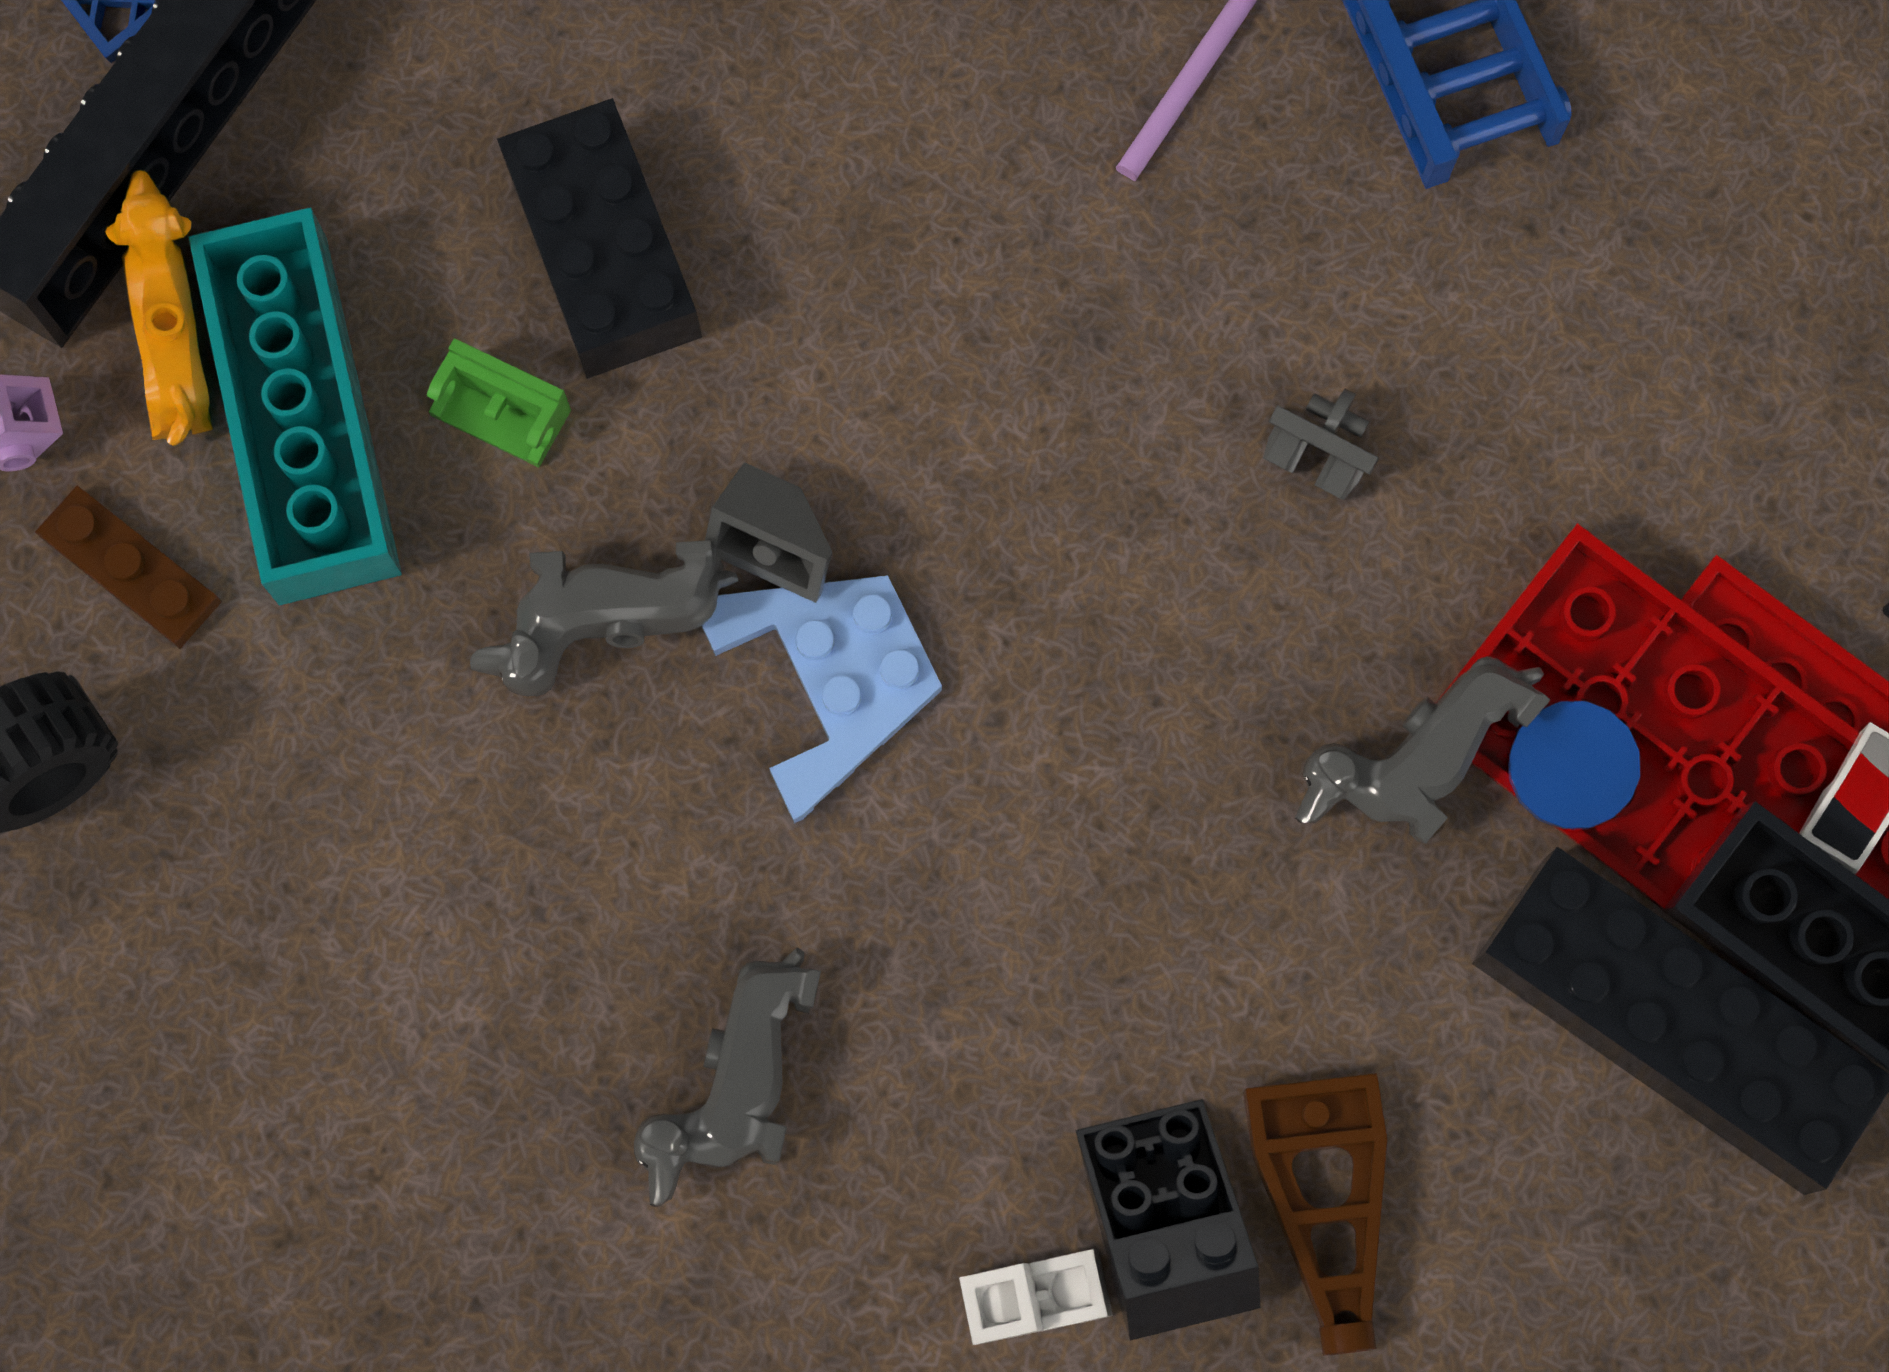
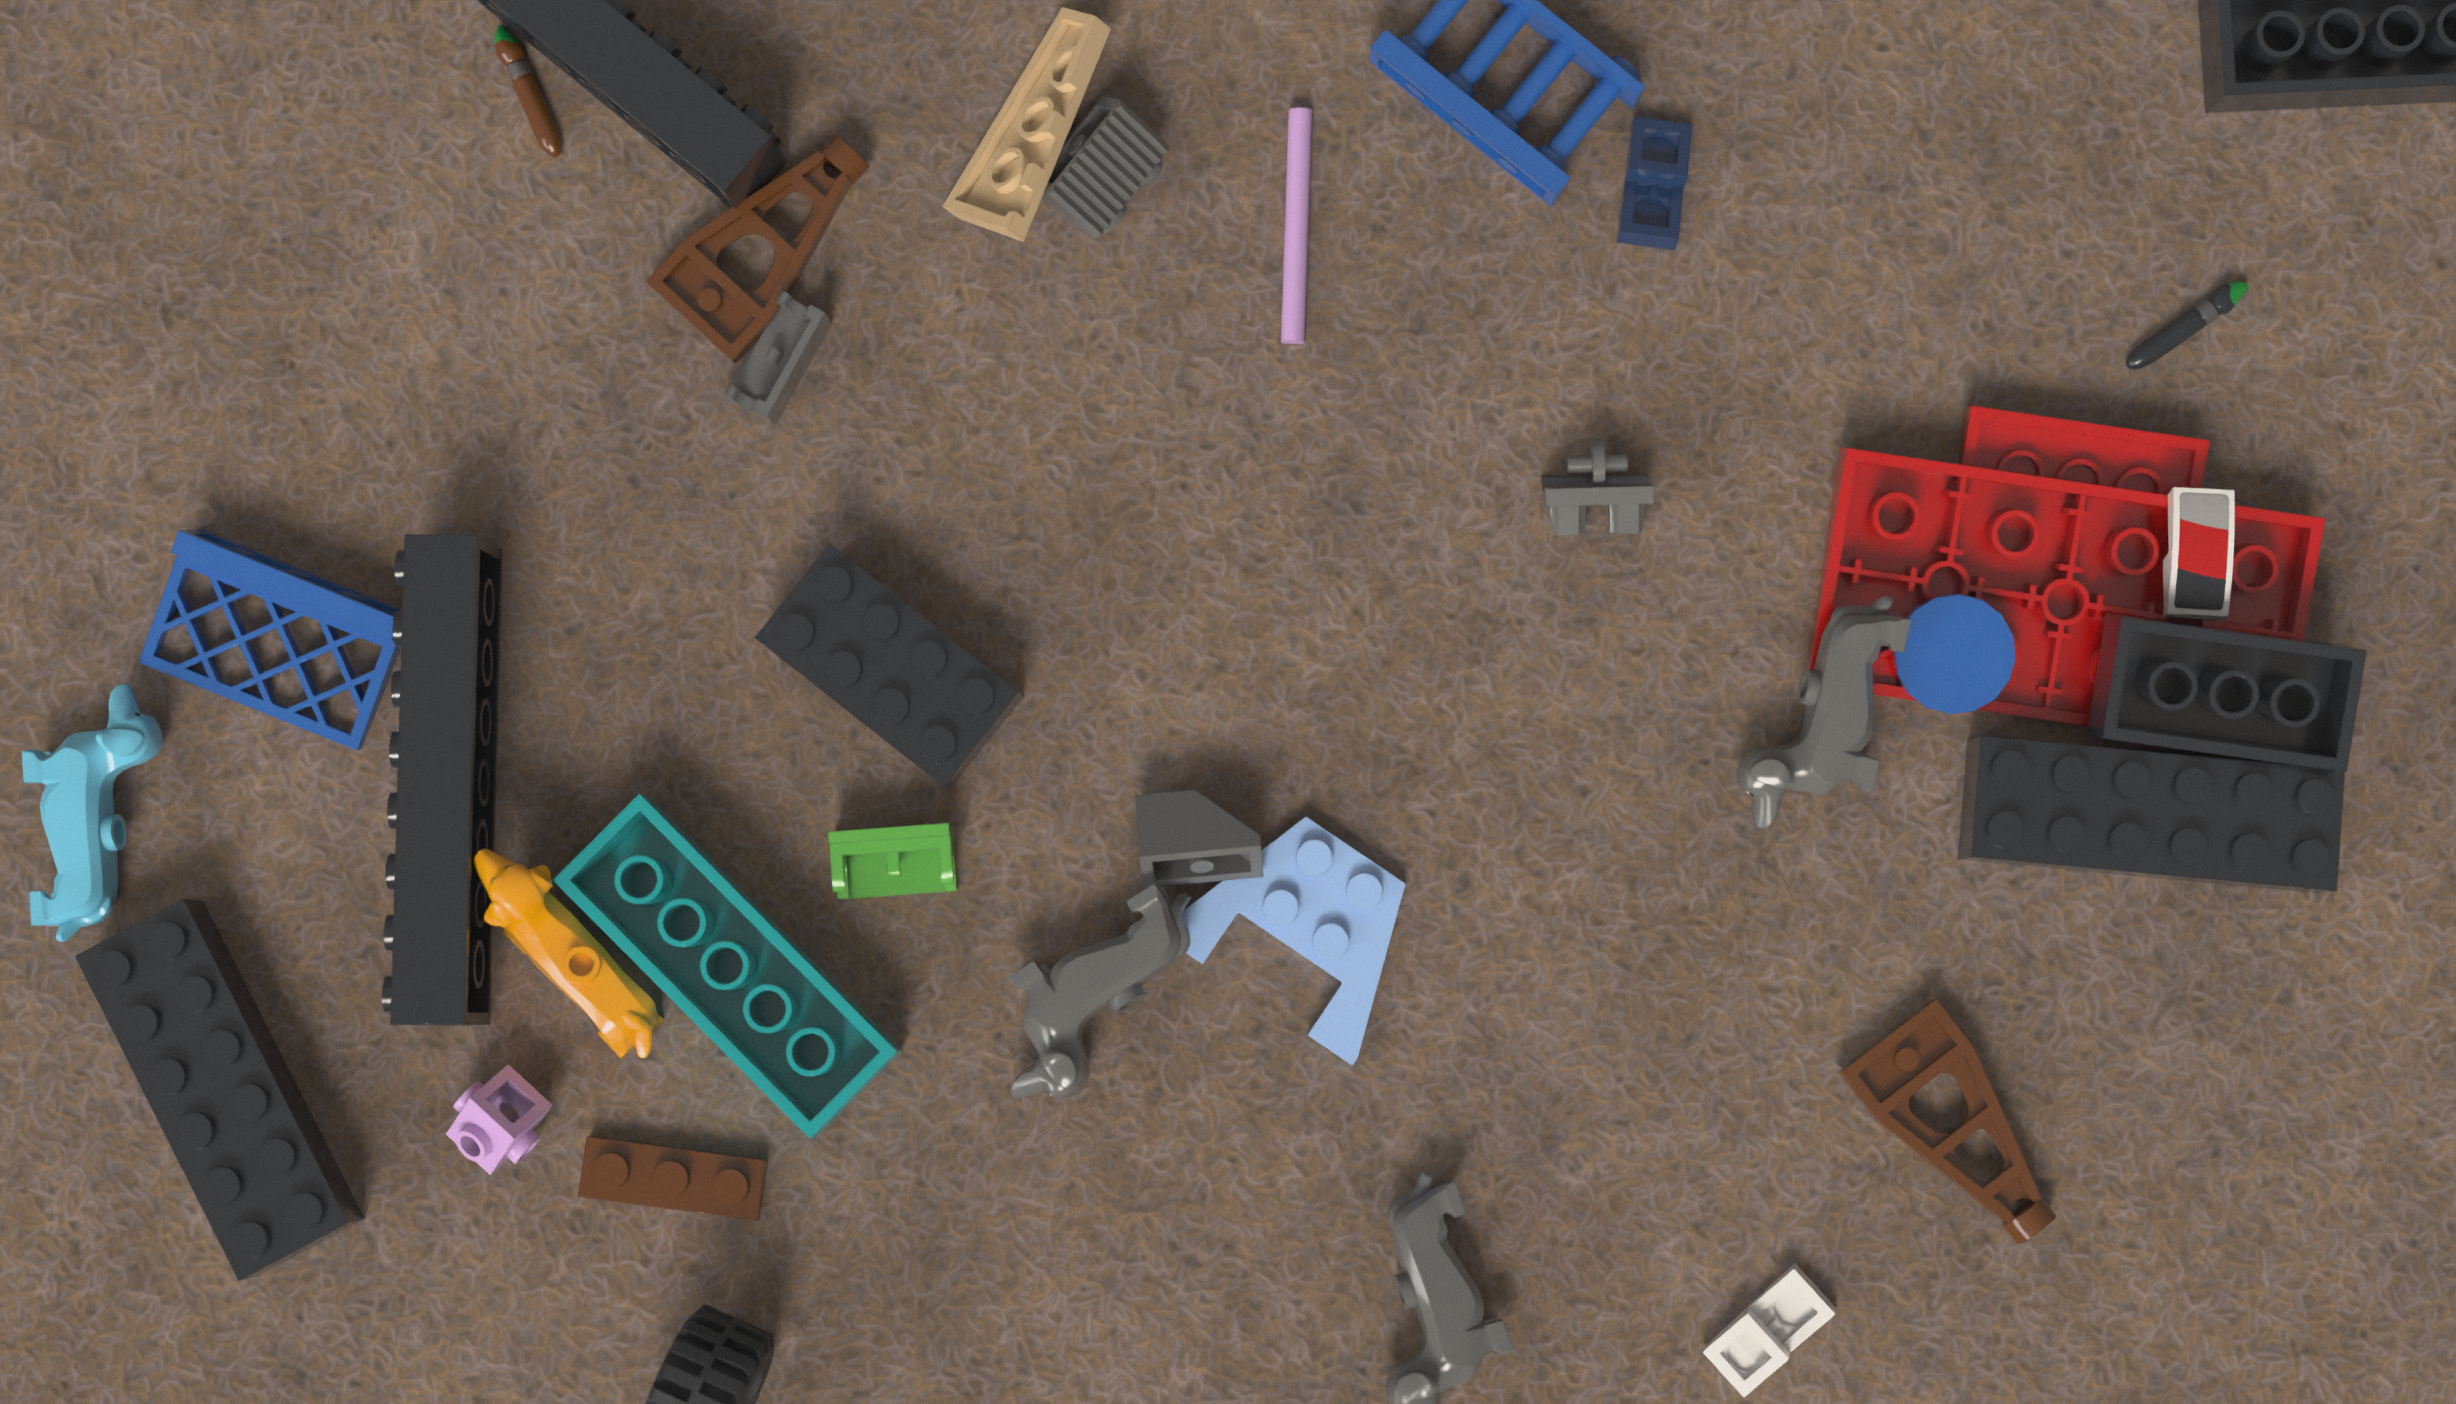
camera: 25 degrees left, 10 degrees up
(1169, 1220) = (1837, 1208): black slope -> none
(1531, 216) = (1654, 183): none -> dark blue slope

